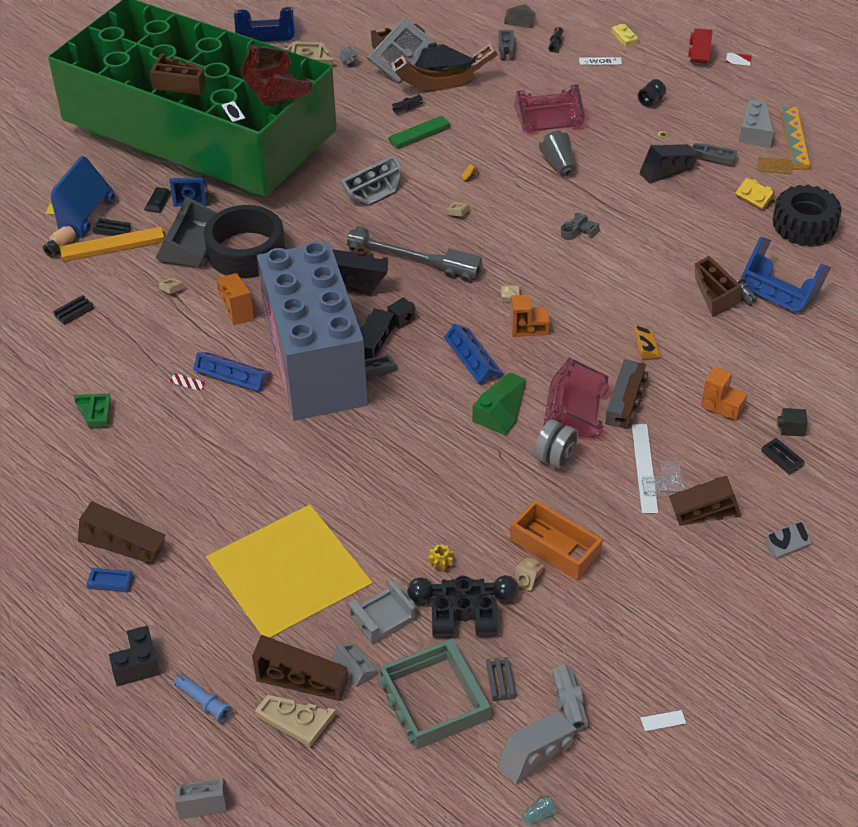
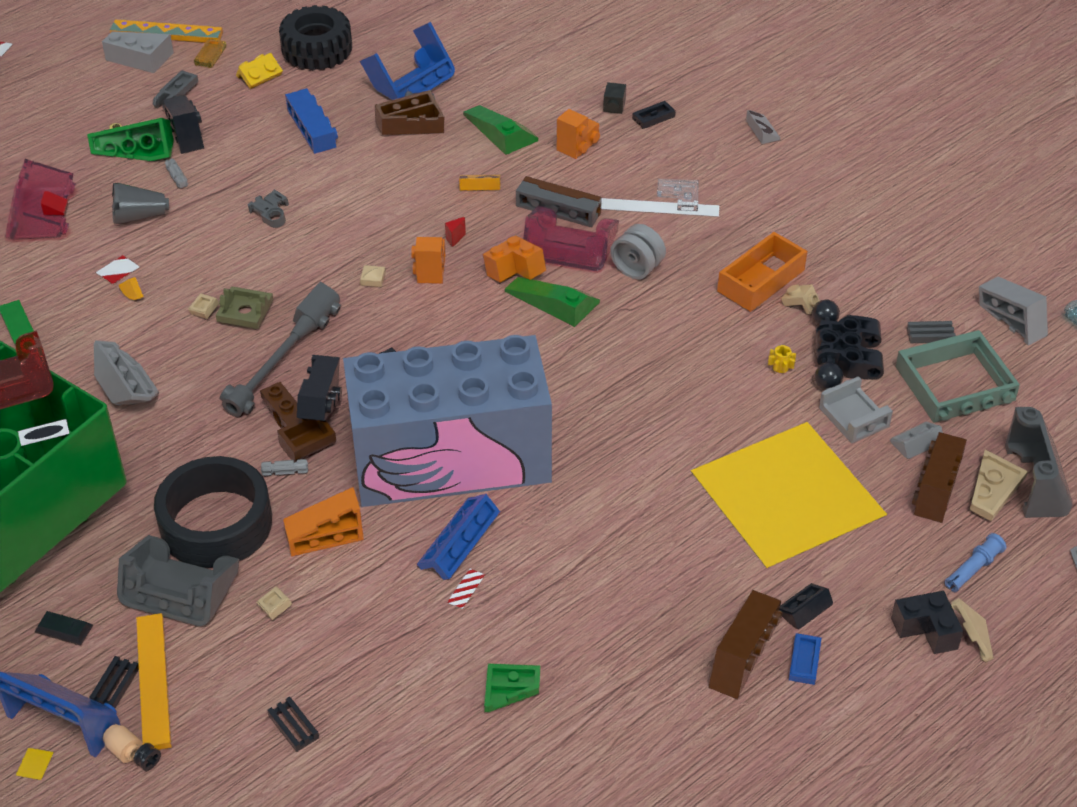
camera: 85 degrees left, 0 degrees up
(128, 691) = (975, 628): none -> tan tile
(163, 580) = (806, 605): none -> black slope
(191, 187) = (72, 577): blue slope -> none
(309, 752) = (1034, 443): none -> dark grey windscreen
(466, 224) = (238, 298): none -> olive piece
(472, 353) = (473, 314): blue fence -> none
(495, 164) = (117, 269): none -> white sticker
(535, 368) = (514, 257): none -> orange brick
(554, 117) = (53, 204): none -> red slope
(569, 696) = (952, 283): light grey piece -> none
(570, 332) = (455, 230): none -> red slope
(609, 172) = (176, 173): none -> light grey axle
(637, 142) = (140, 141): none -> green wedge
(651, 93) = (42, 117): black wheel -> none
(663, 720) = (967, 233): white sticker -> none
(694, 231) = (311, 121): none -> blue brick
(705, 501) = (720, 163): reddish brown wedge -> none
(724, 348) = (500, 130): none -> green wedge

